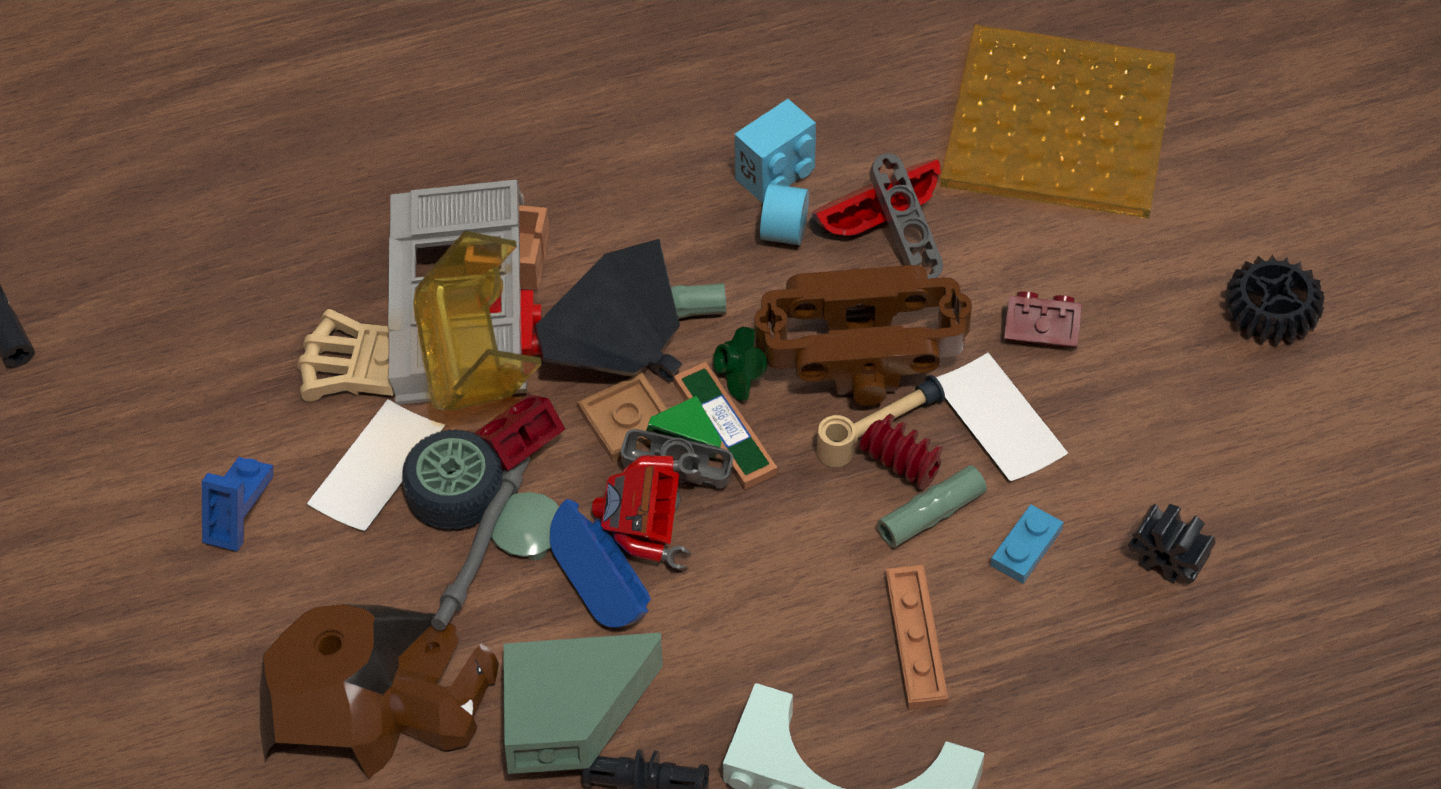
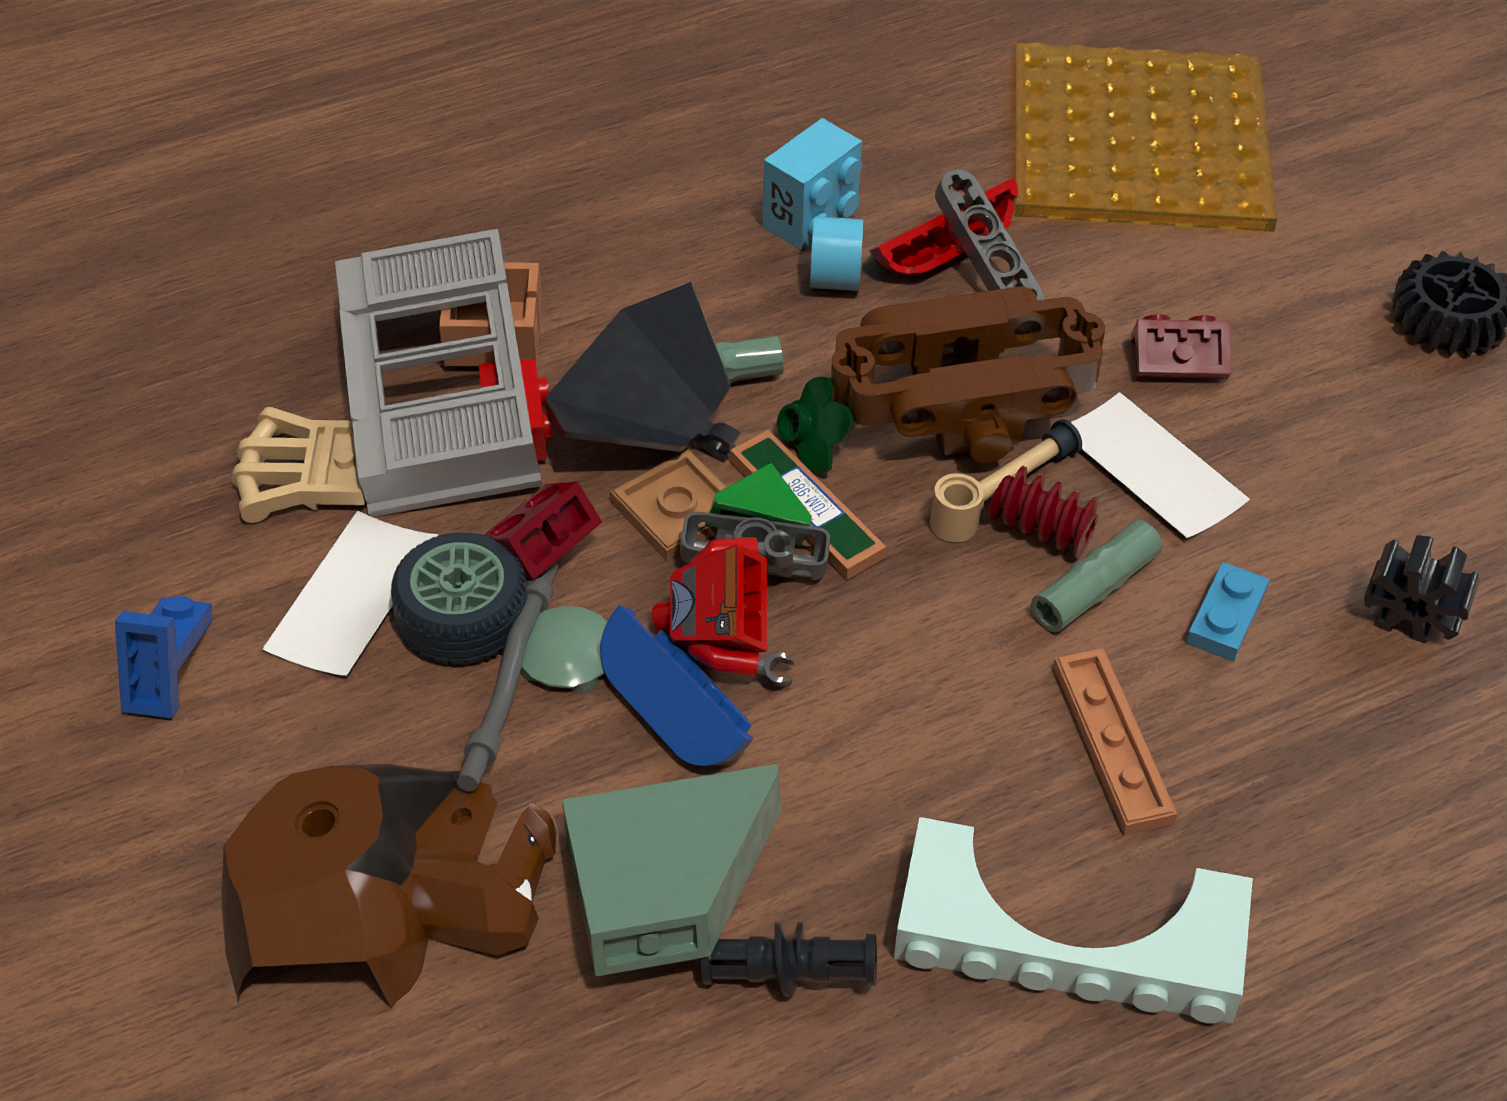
camera: 10 degrees left, 5 degrees down
(458, 328) = (441, 404): clear yellow windscreen -> none

